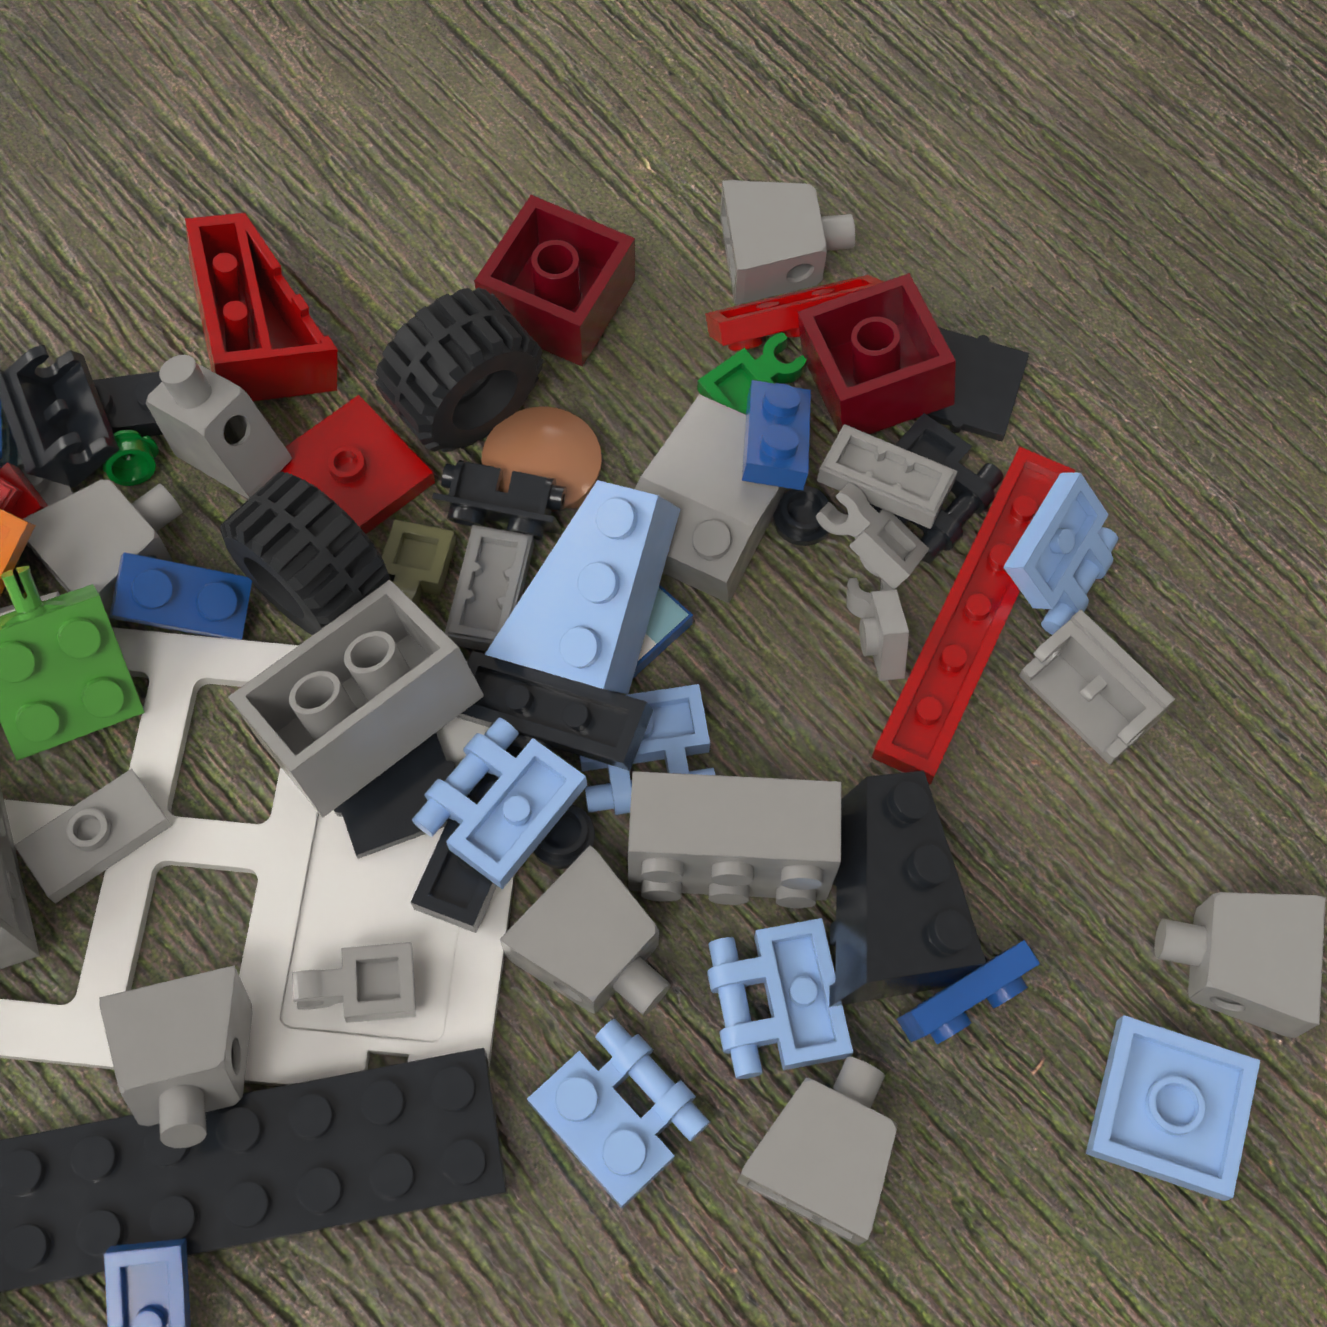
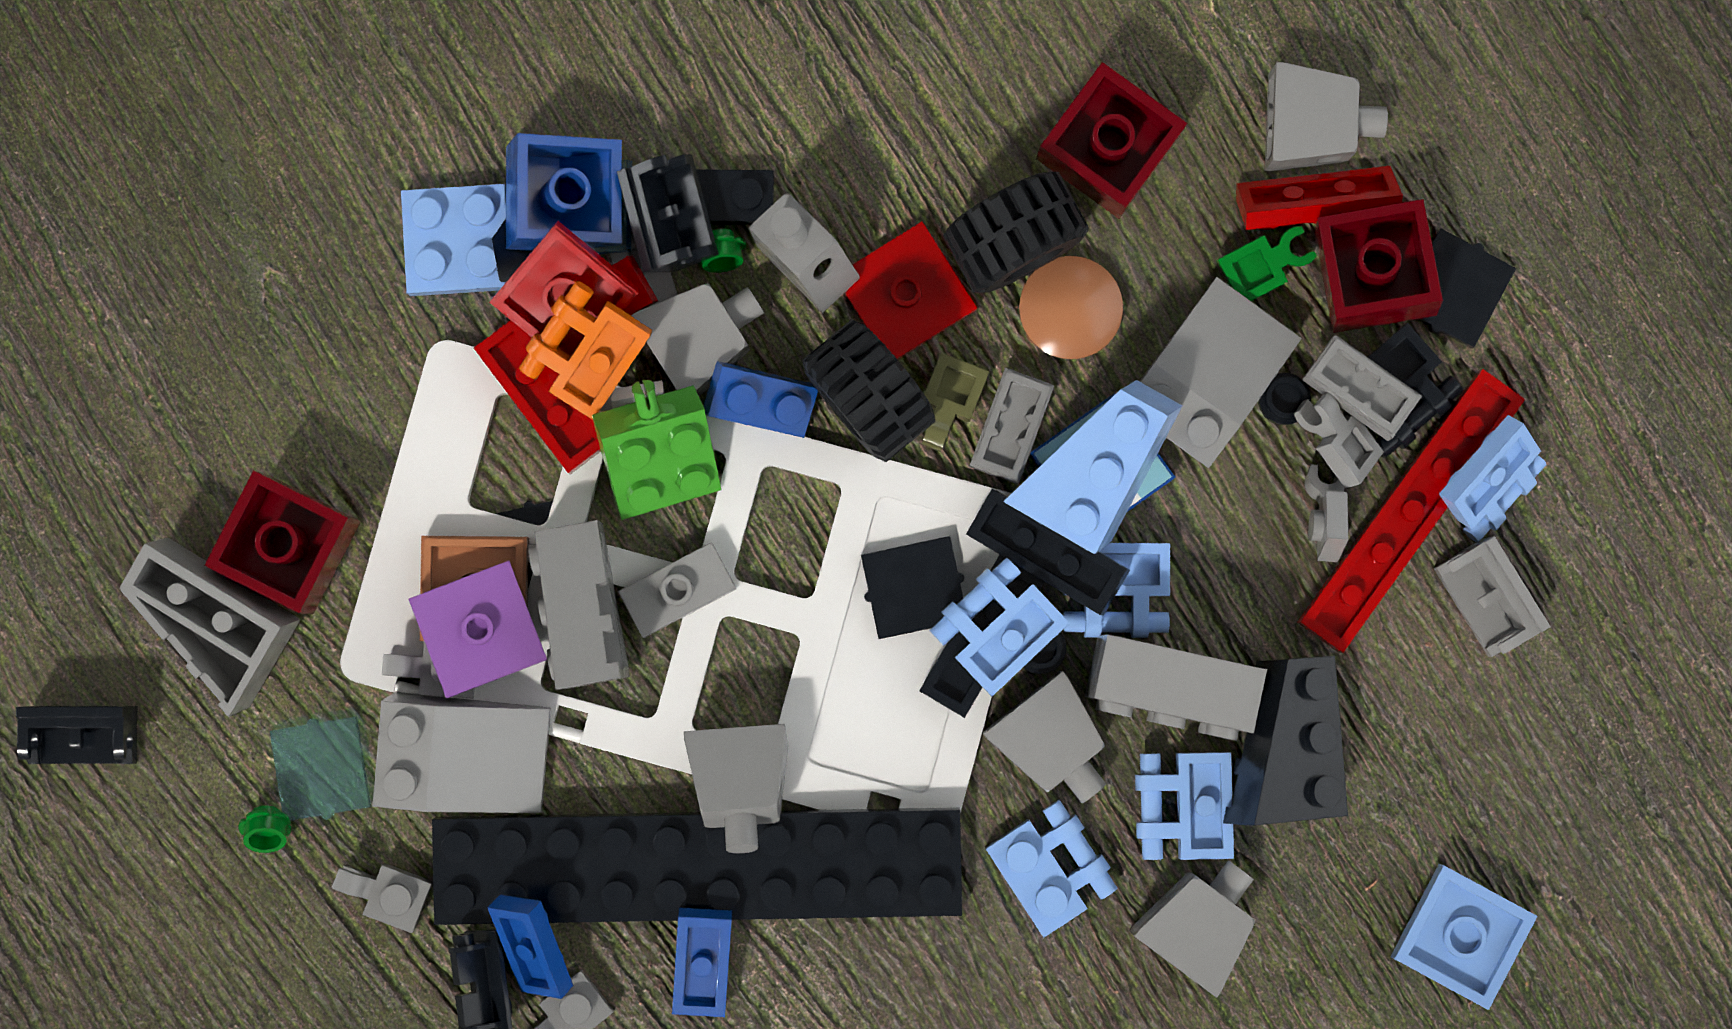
camera: 10 degrees right, 20 degrees up
(251, 316) = (836, 134): red wedge -> none
(357, 696) = (898, 522): light grey brick -> none
(372, 984) = (882, 745): light grey plate -> none
(476, 498) = (1012, 344): black hinge -> none
(777, 435) = (1276, 334): blue plate -> none
(945, 1011) = (1310, 838): blue plate -> none
(1253, 957) = (1554, 837): light grey torso -> none

